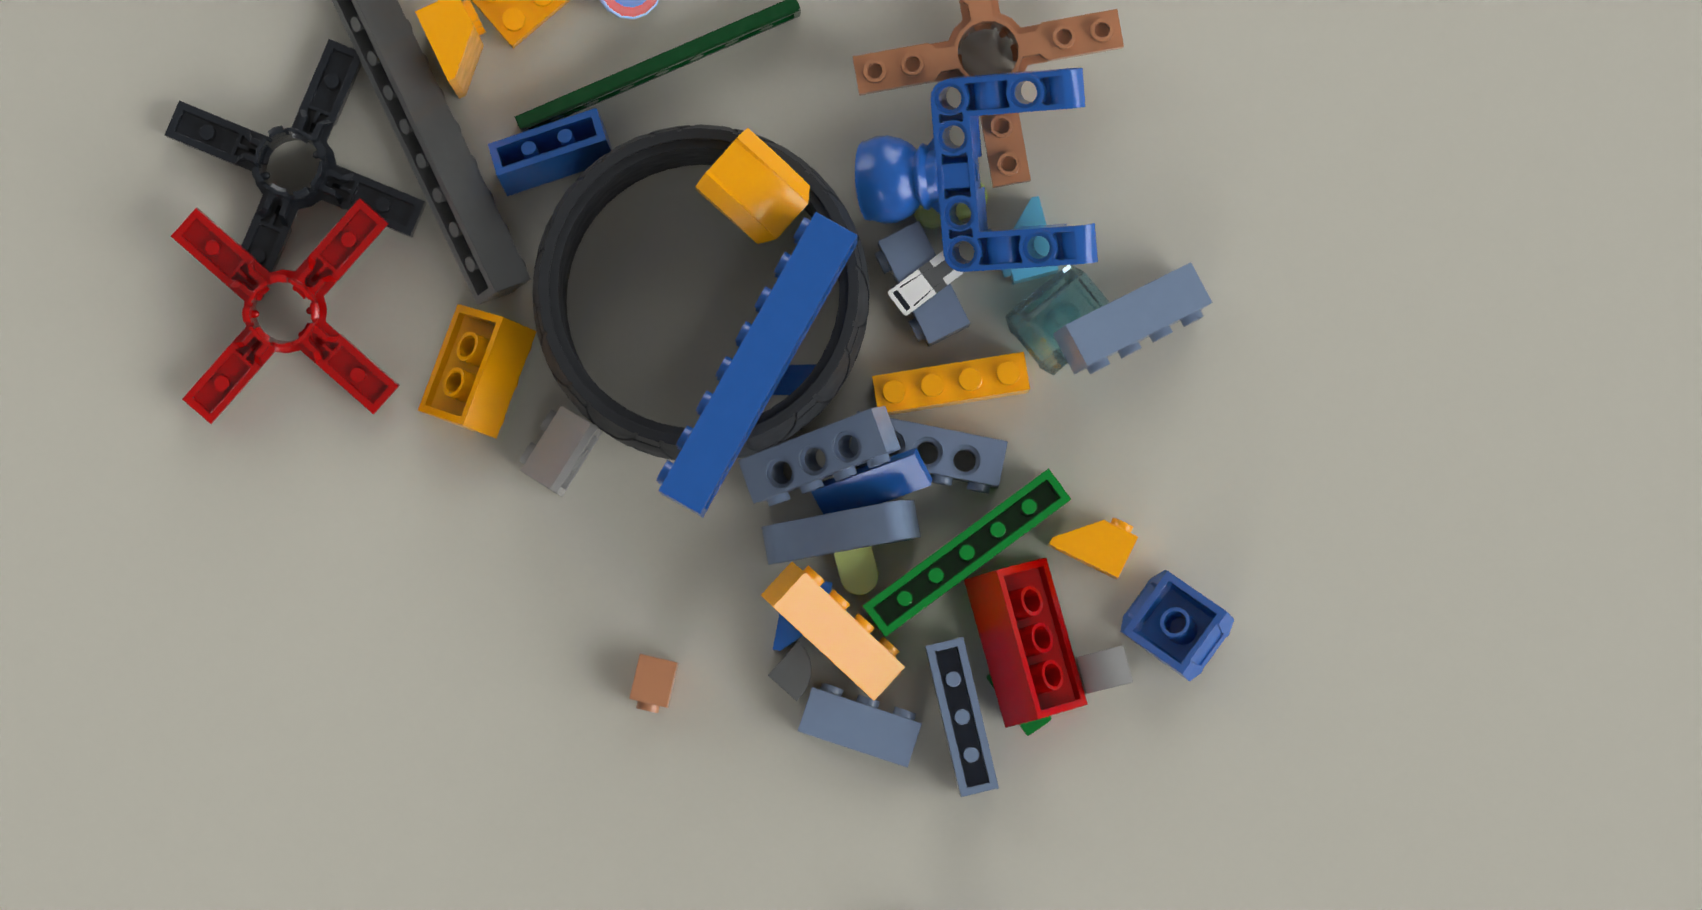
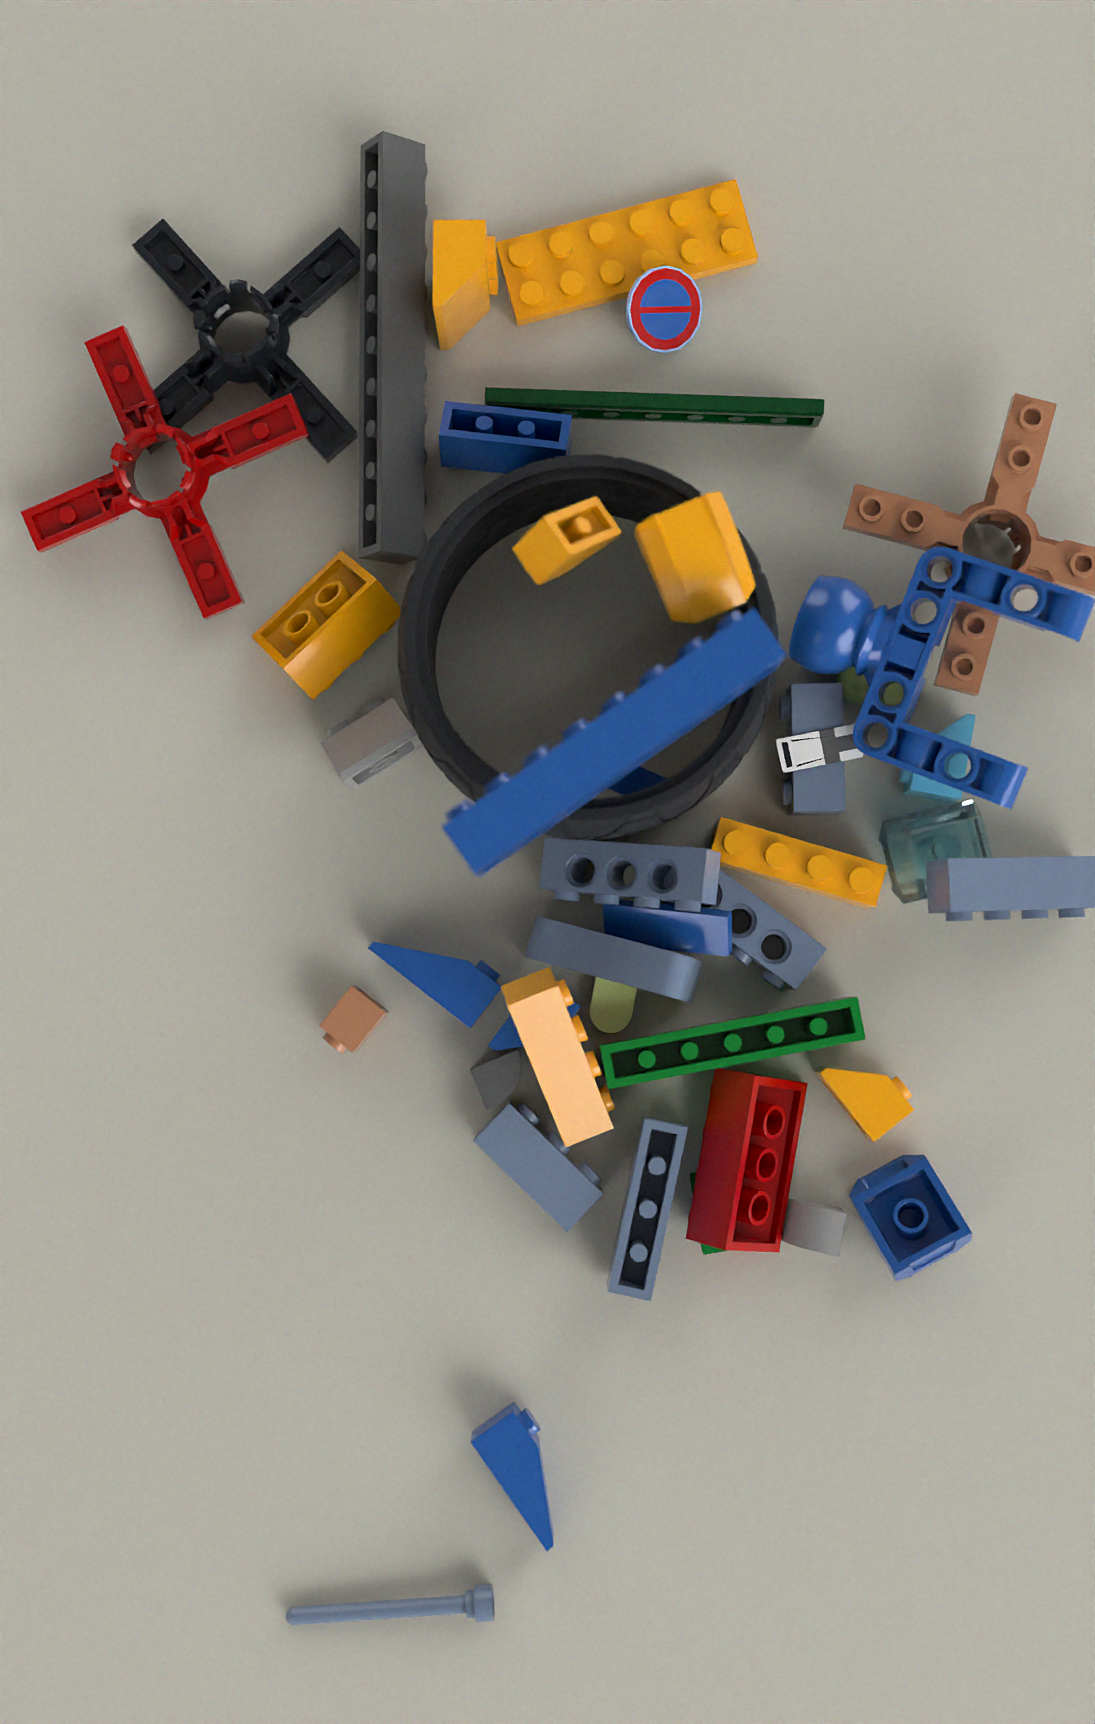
camera: 30 degrees right, 0 degrees up
(646, 221) = (566, 539): none -> light orange slope
(717, 613) = (449, 981): none -> blue slope

